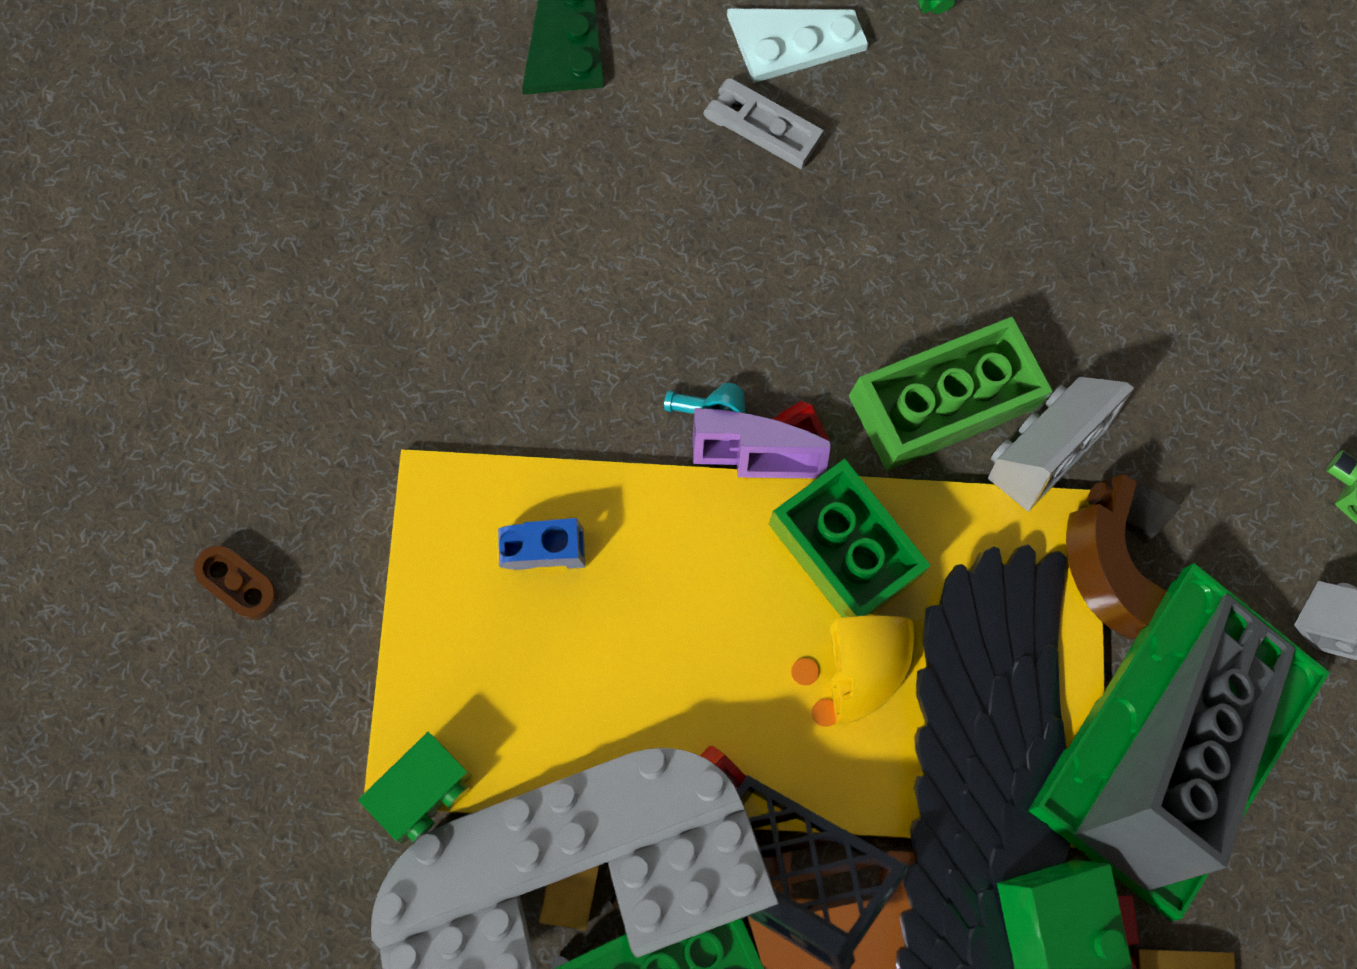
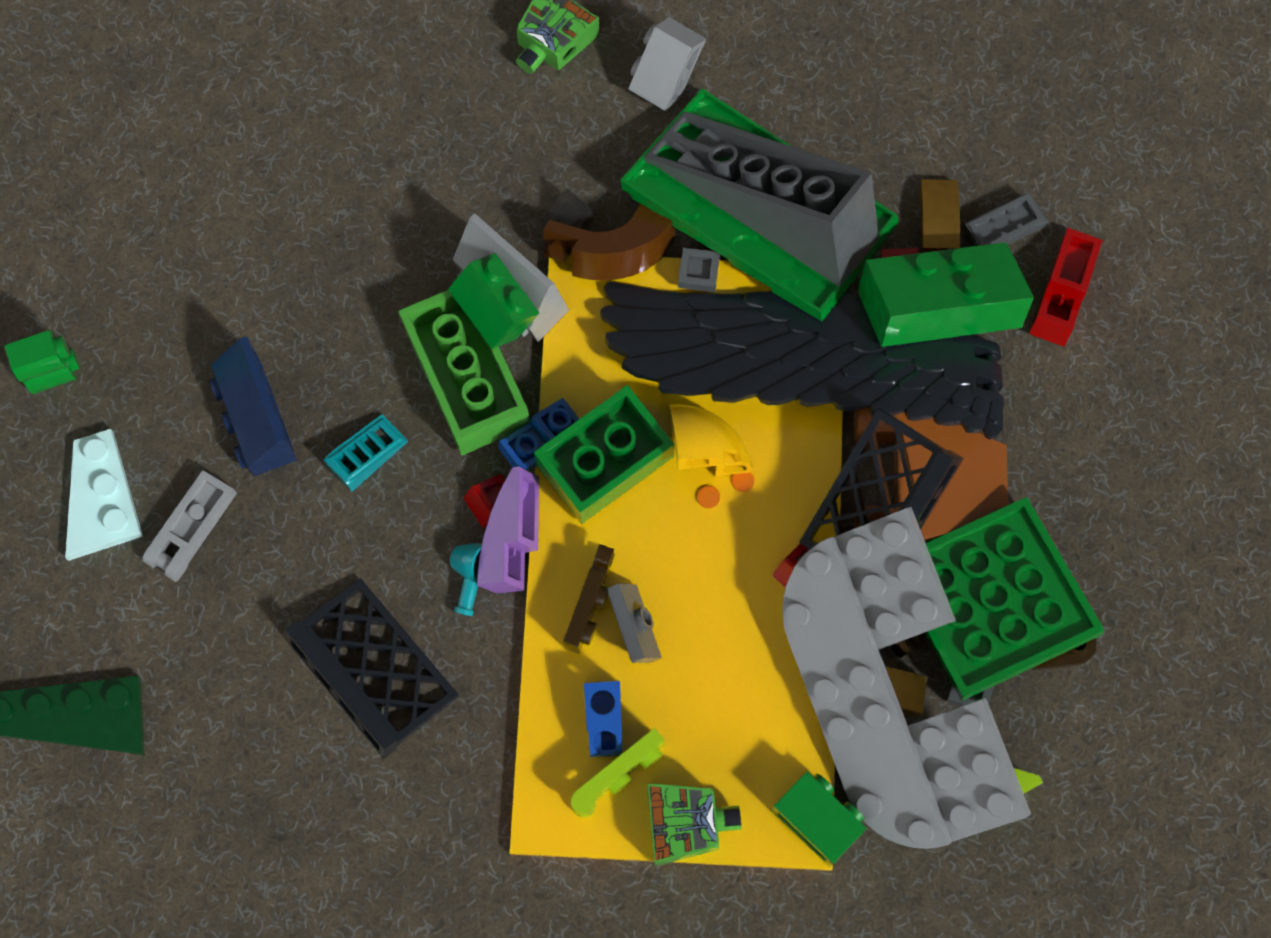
camera: 85 degrees left, 0 degrees up
(419, 635) = (687, 821): none -> torso
(476, 558) = (616, 774): none -> lime plate
(587, 275) = (344, 688): none -> black fence
(649, 579) = (634, 623): none -> dark grey plate
(680, 531) = (592, 595): none -> dark brown plate
(860, 285) = (364, 470): none -> teal slope
(882, 480) = (544, 426): none -> blue slope
(893, 176) = (251, 409): none -> dark blue slope
(1027, 413) = (493, 300): none -> green brick
(1087, 661) = (698, 270): none -> dark grey plate

